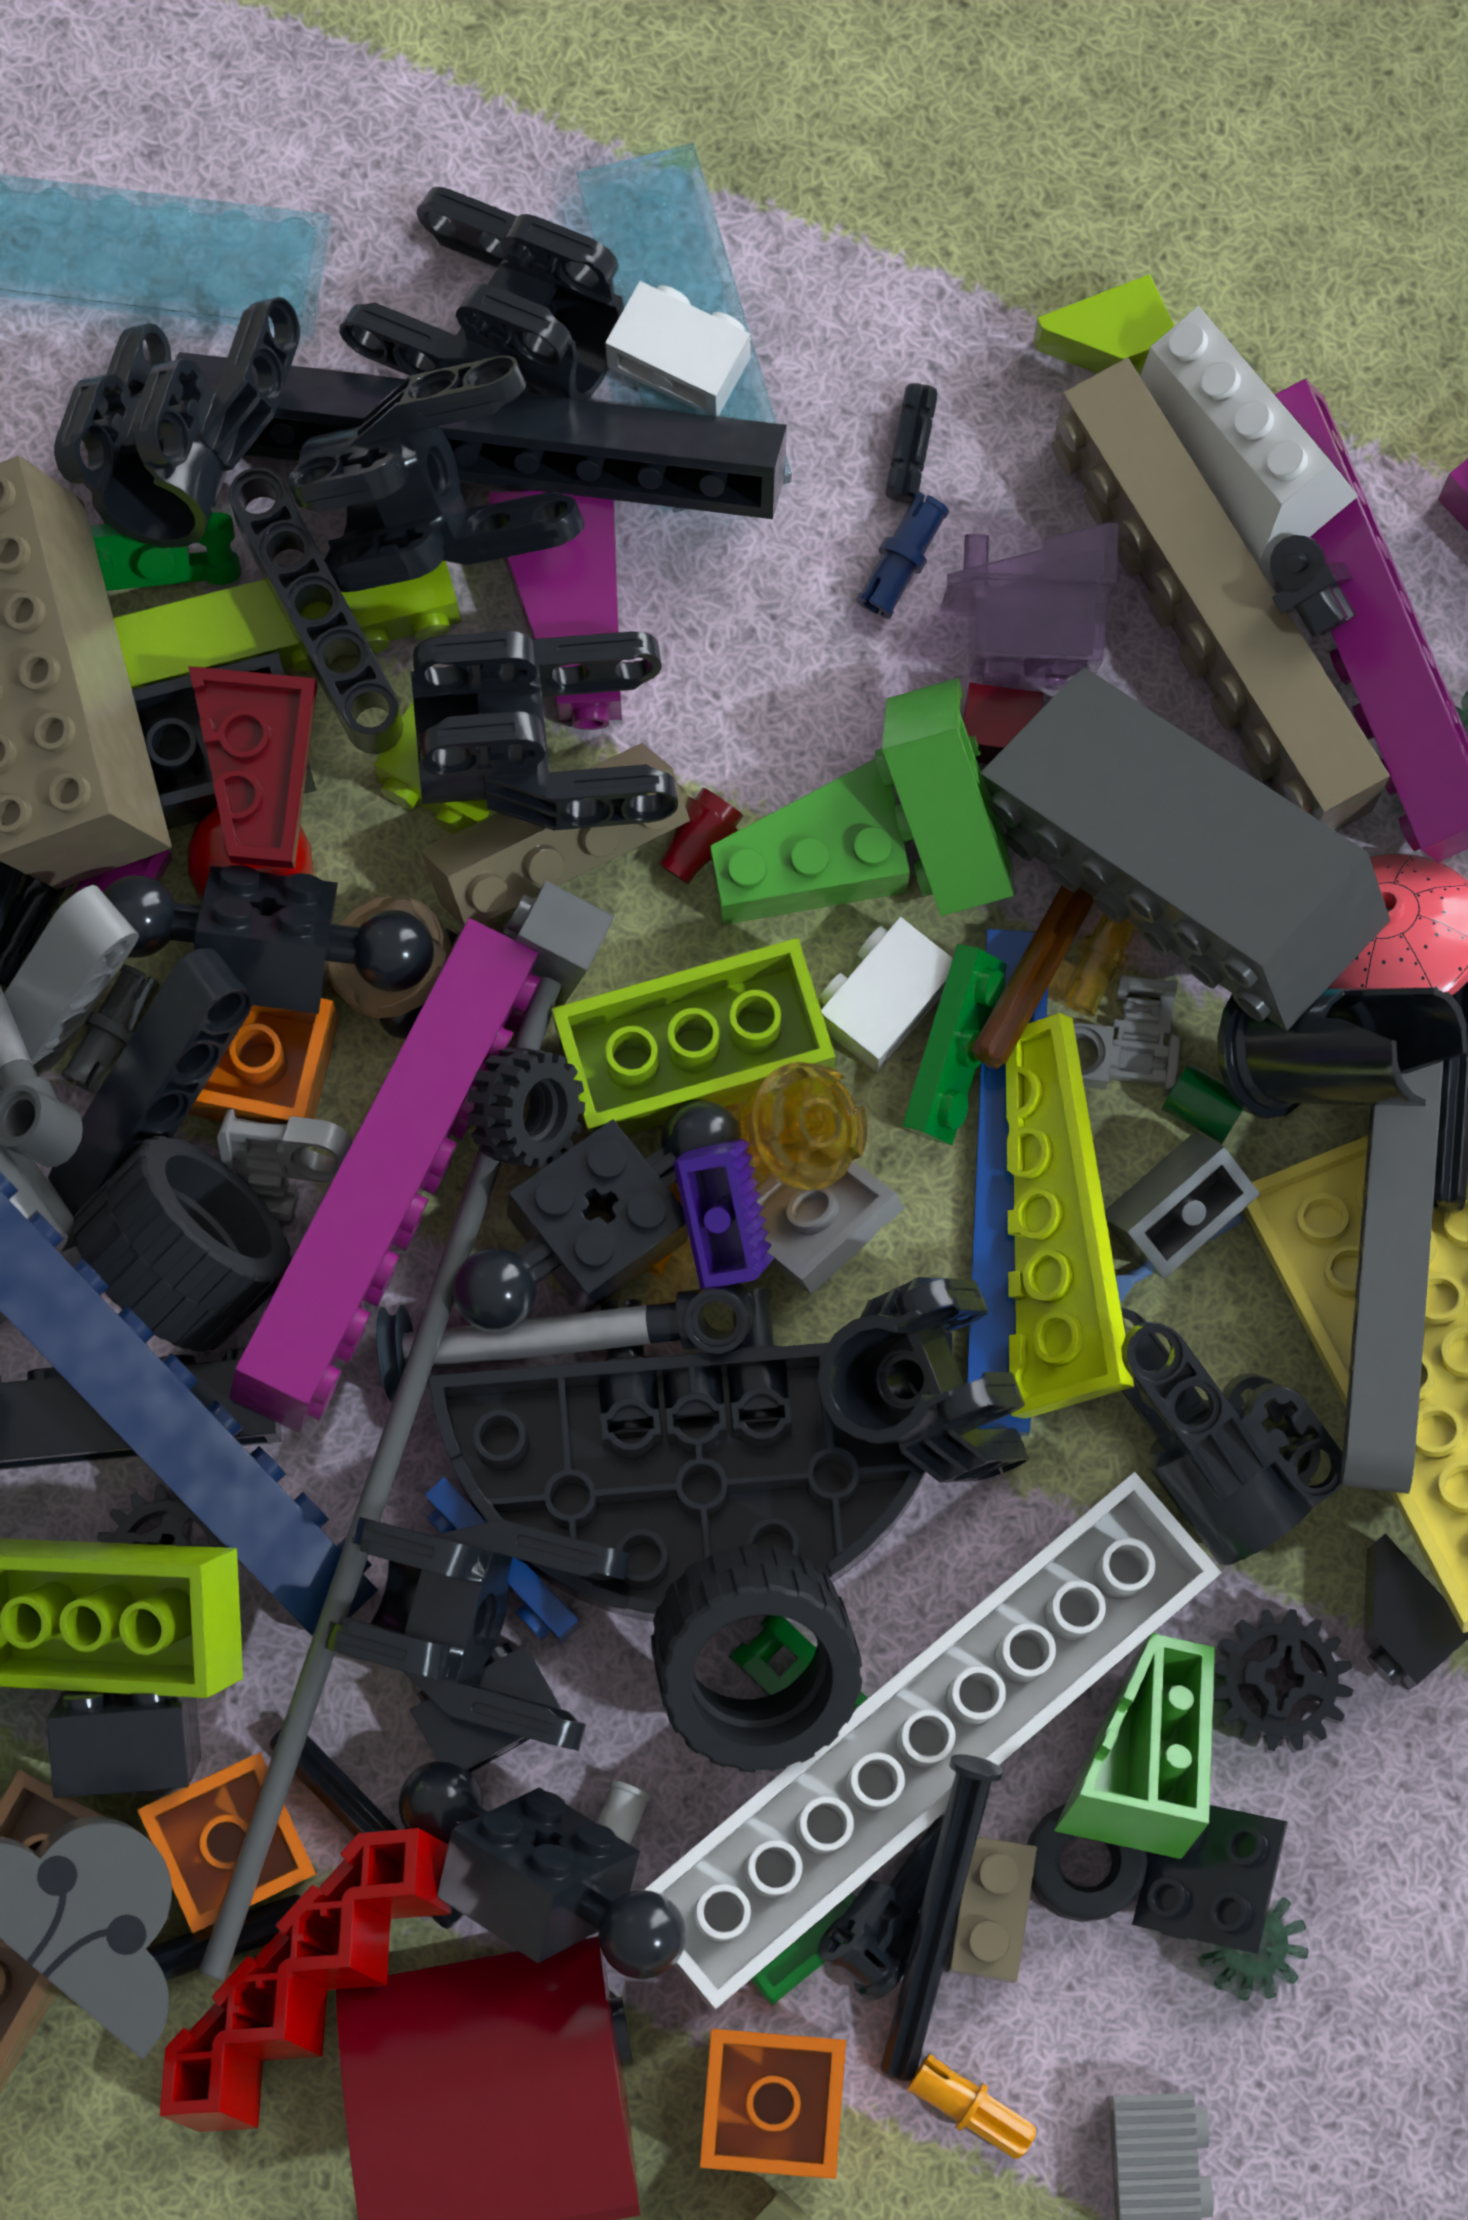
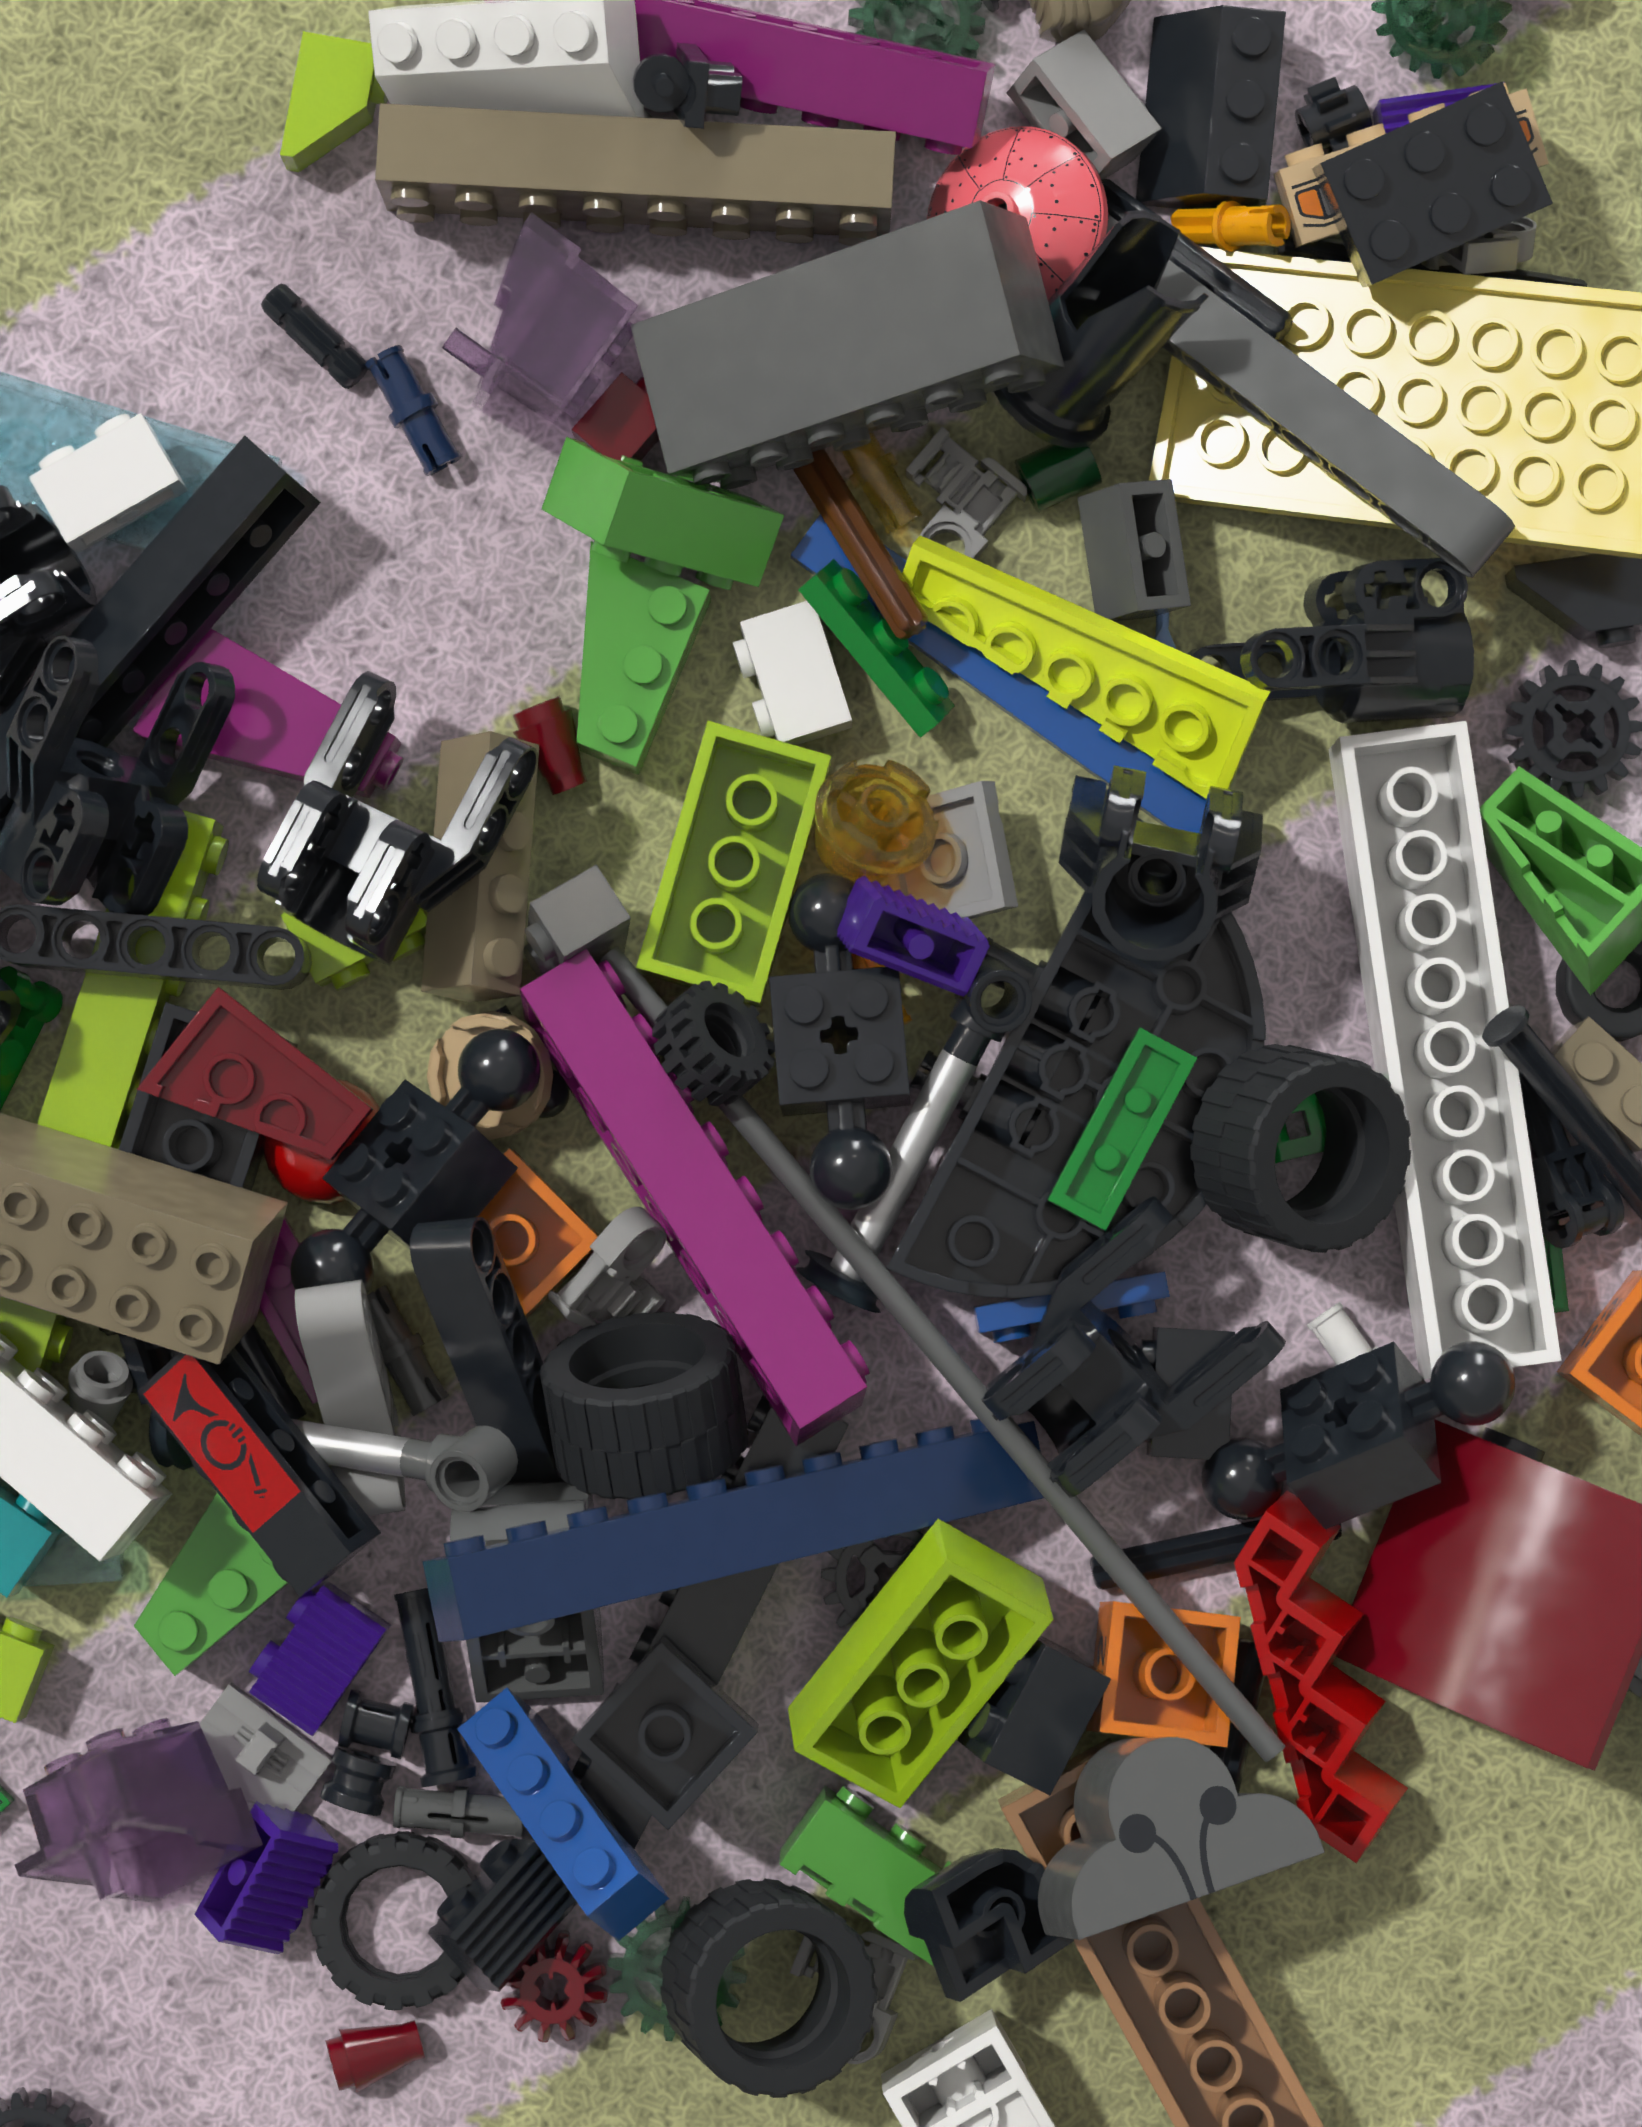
camera: 60 degrees left, 10 degrees up
(673, 1495) = (1122, 1129): none -> green plate

